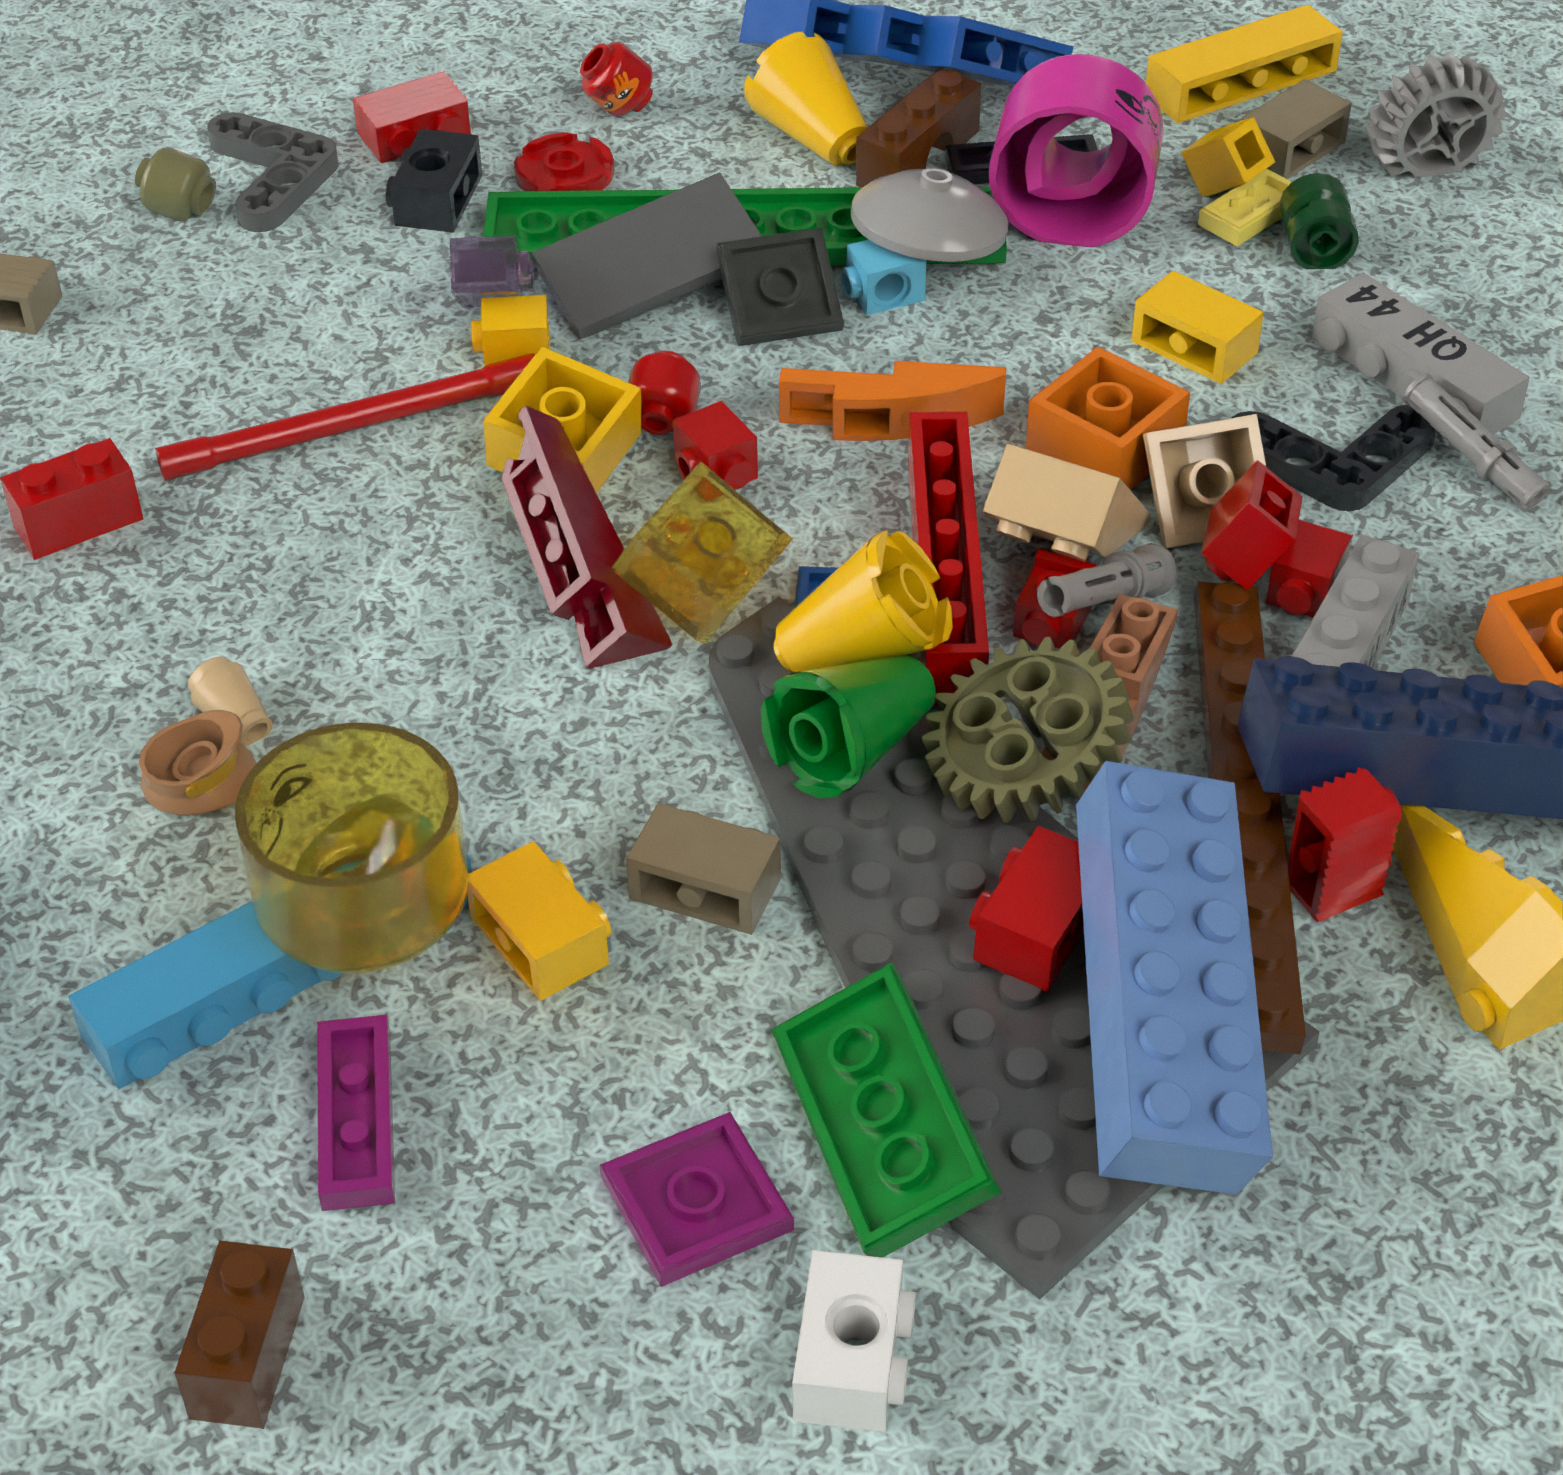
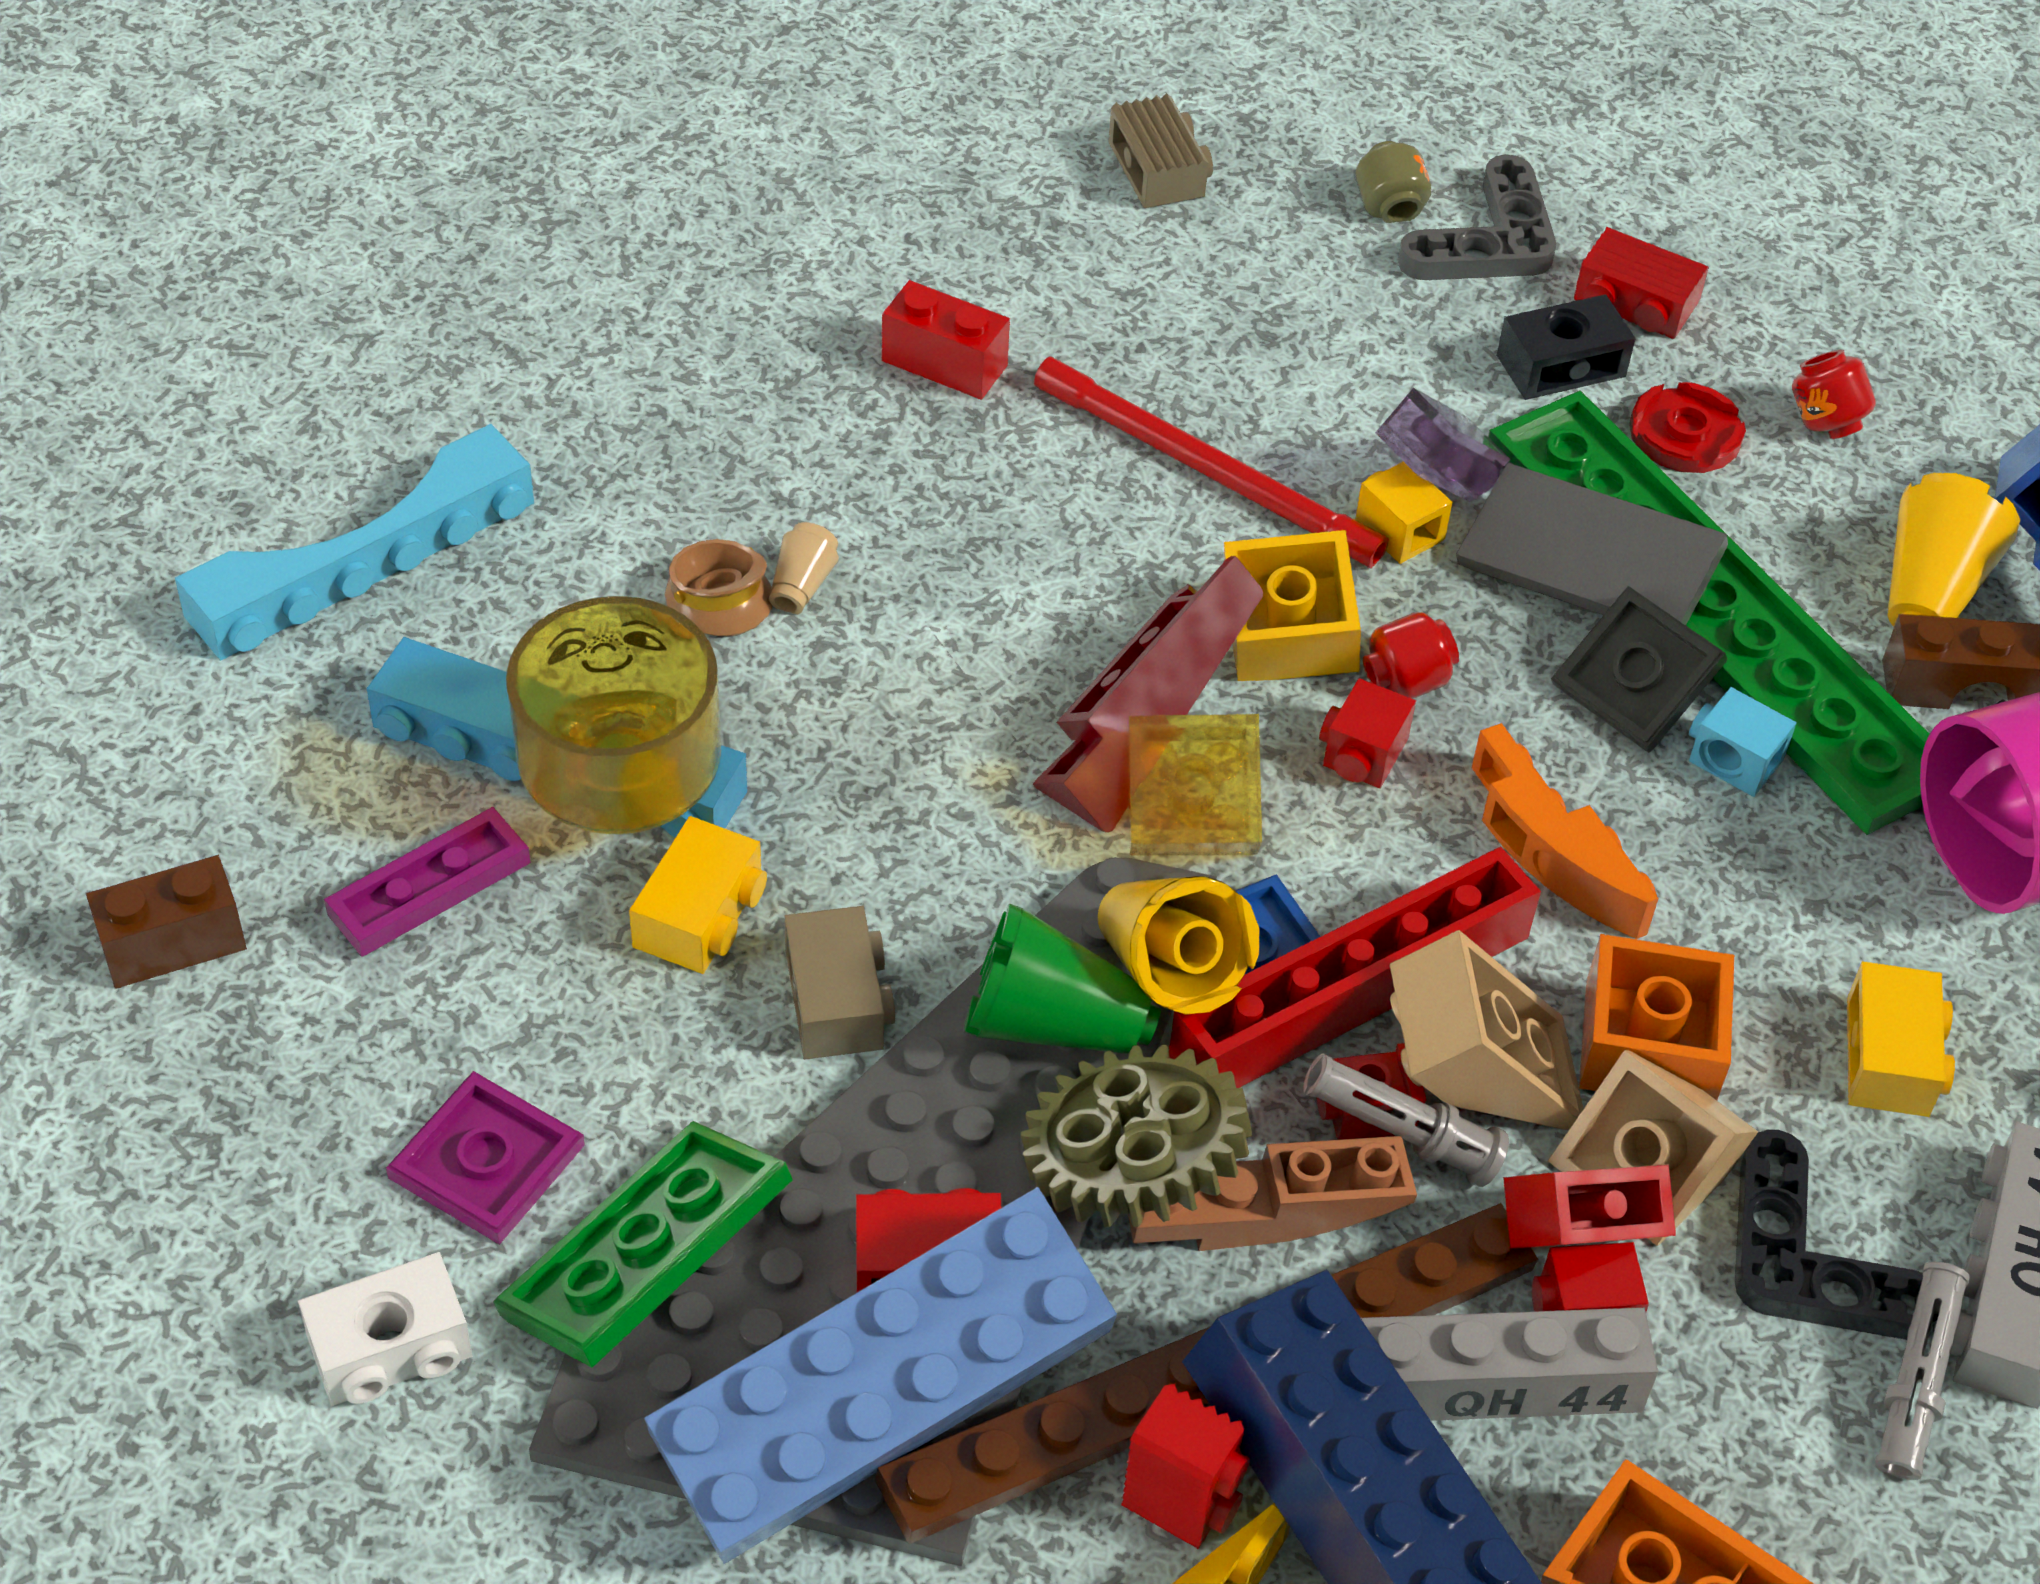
camera: 55 degrees right, 5 degrees up
(929, 216) = (1835, 733): light grey dish -> none

